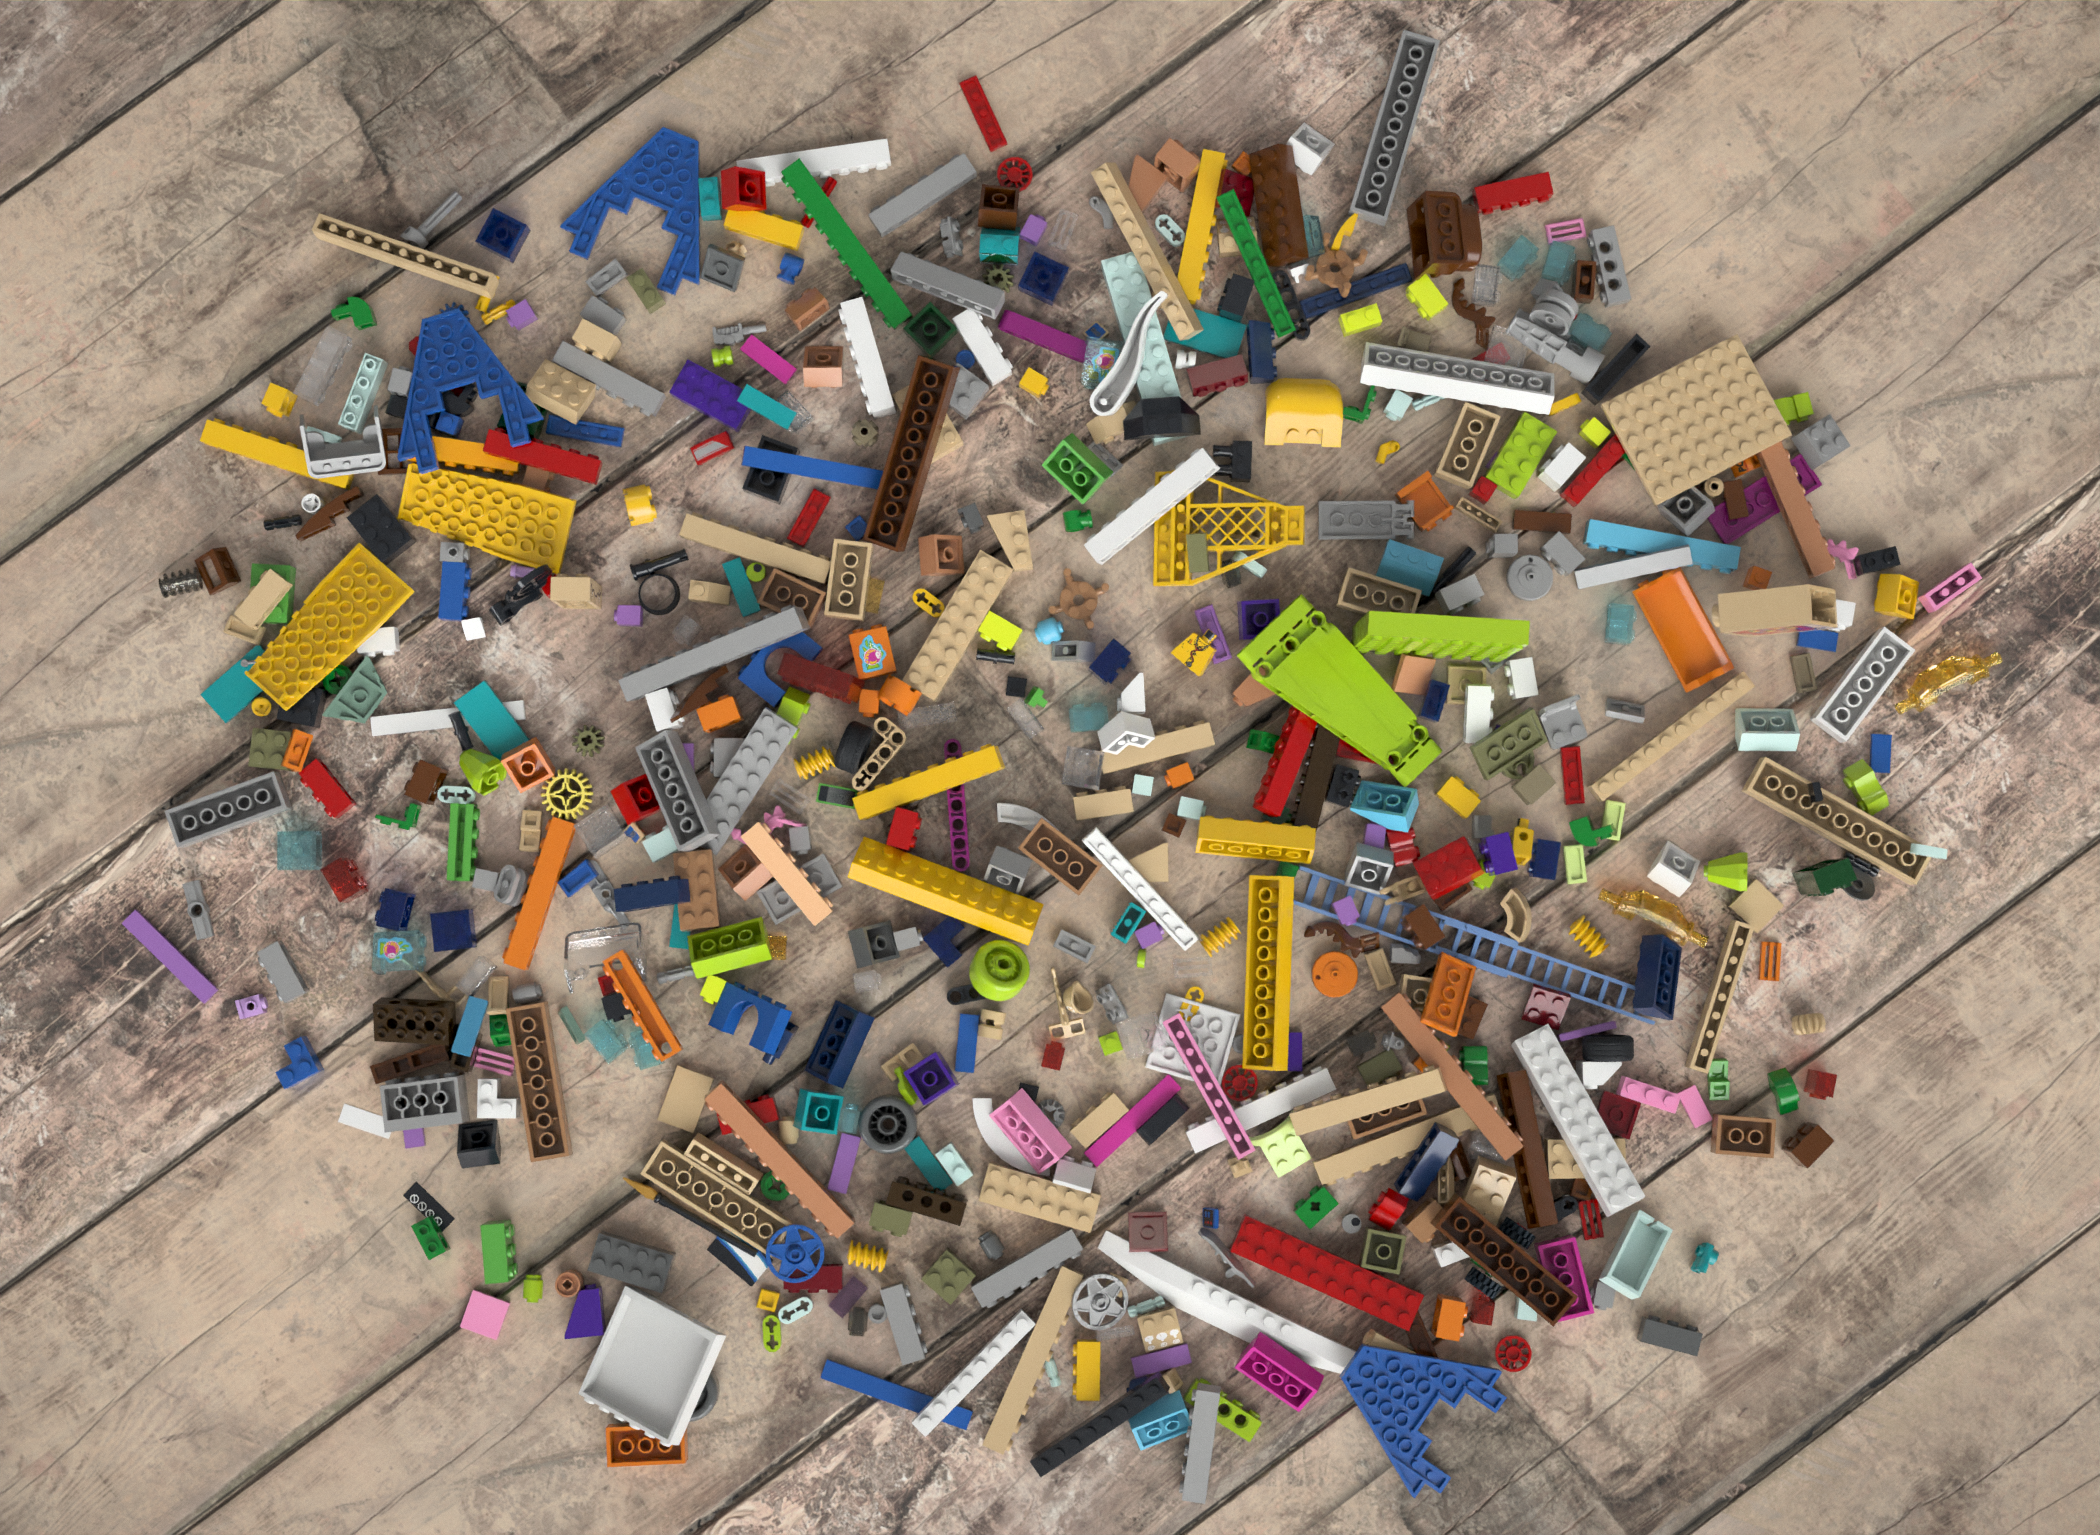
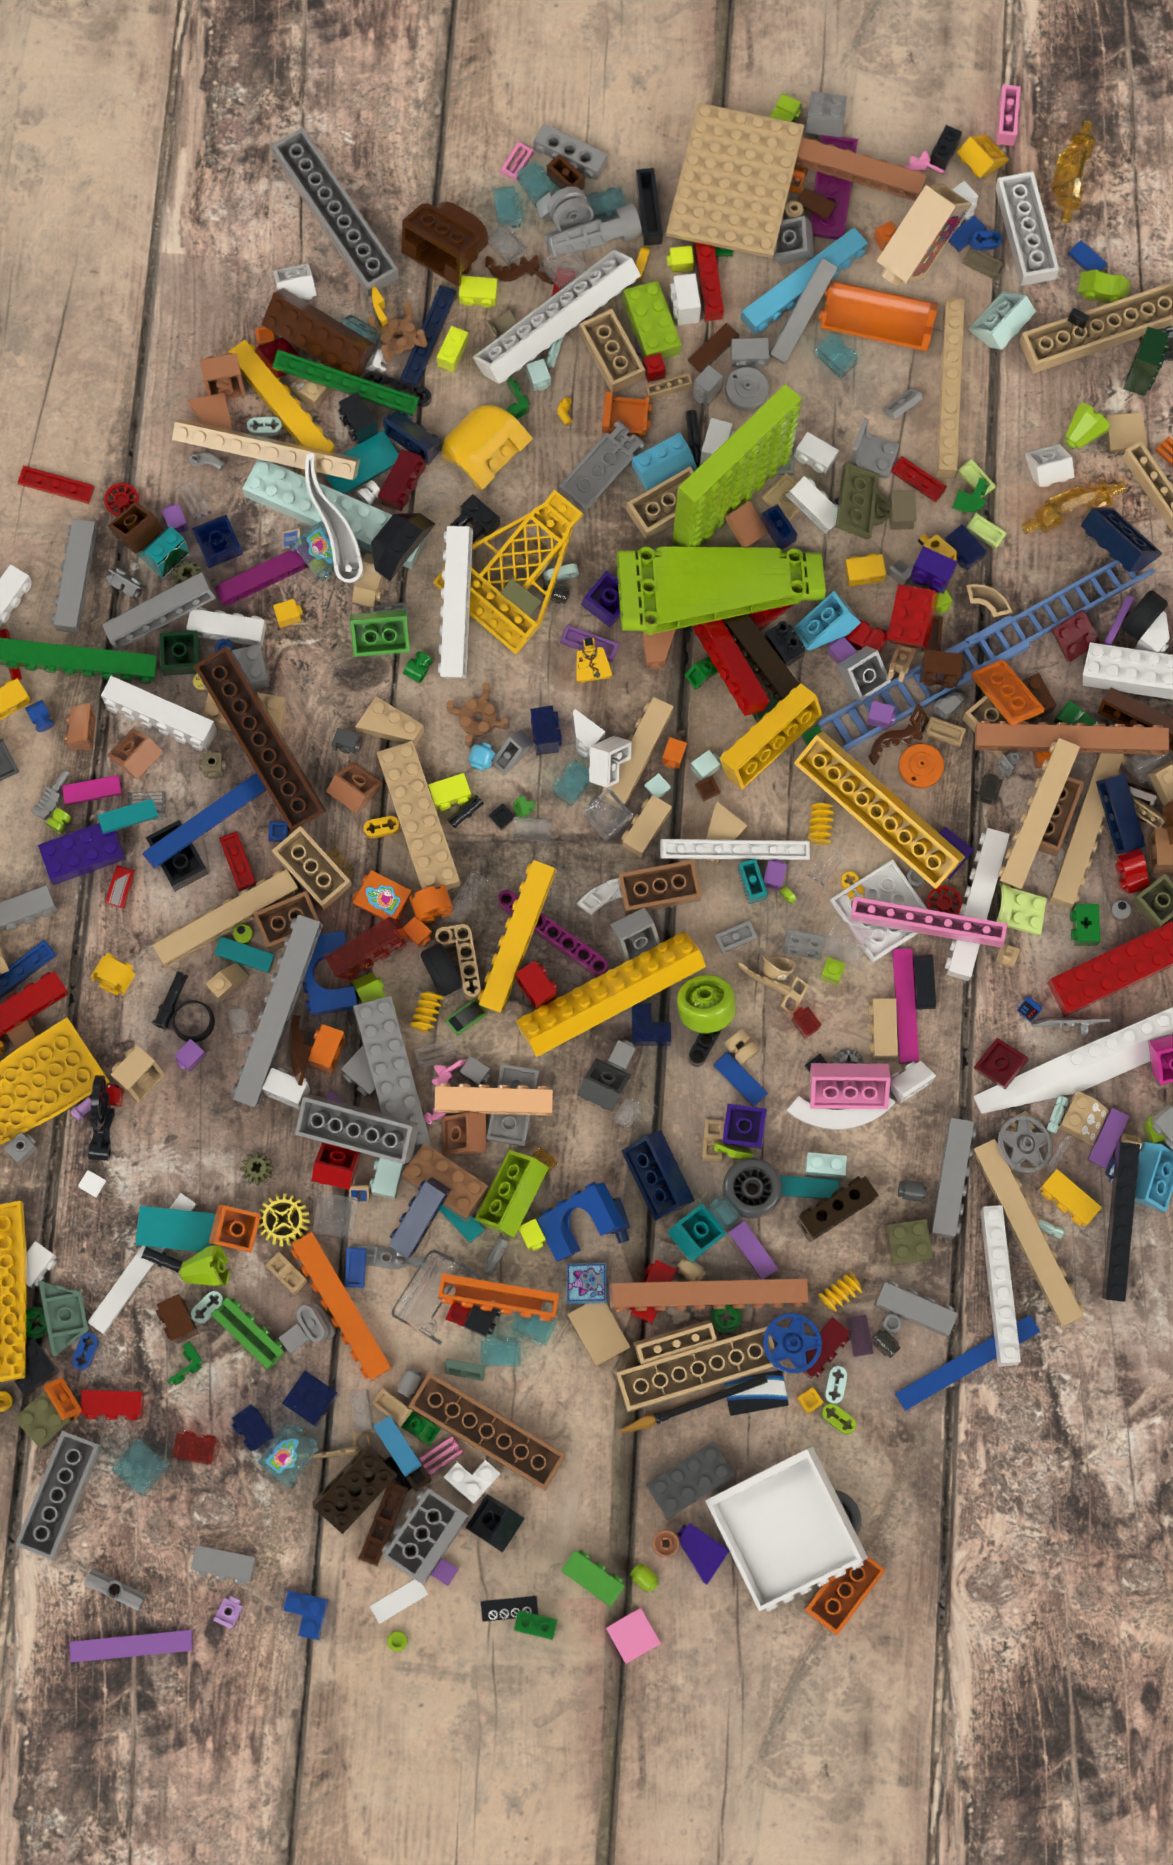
camera: 50 degrees left, 10 degrees down
(336, 1145) = (397, 1641): none -> lime tile
(350, 738) = (89, 1353): none -> blue beam
(454, 591) = (50, 1173): blue brick -> none
(712, 1060) = (586, 1283): none -> tile
(890, 1218) = (826, 1246): olive brick -> none
(1039, 1197) = (905, 1122): tan brick -> none
(1380, 1067) = (1019, 790): olive brick -> none
(1512, 192) = (457, 171): red brick -> none
(1587, 937) = (1048, 564): yellow piece -> none
(1825, 656) = (985, 243): none -> blue beam

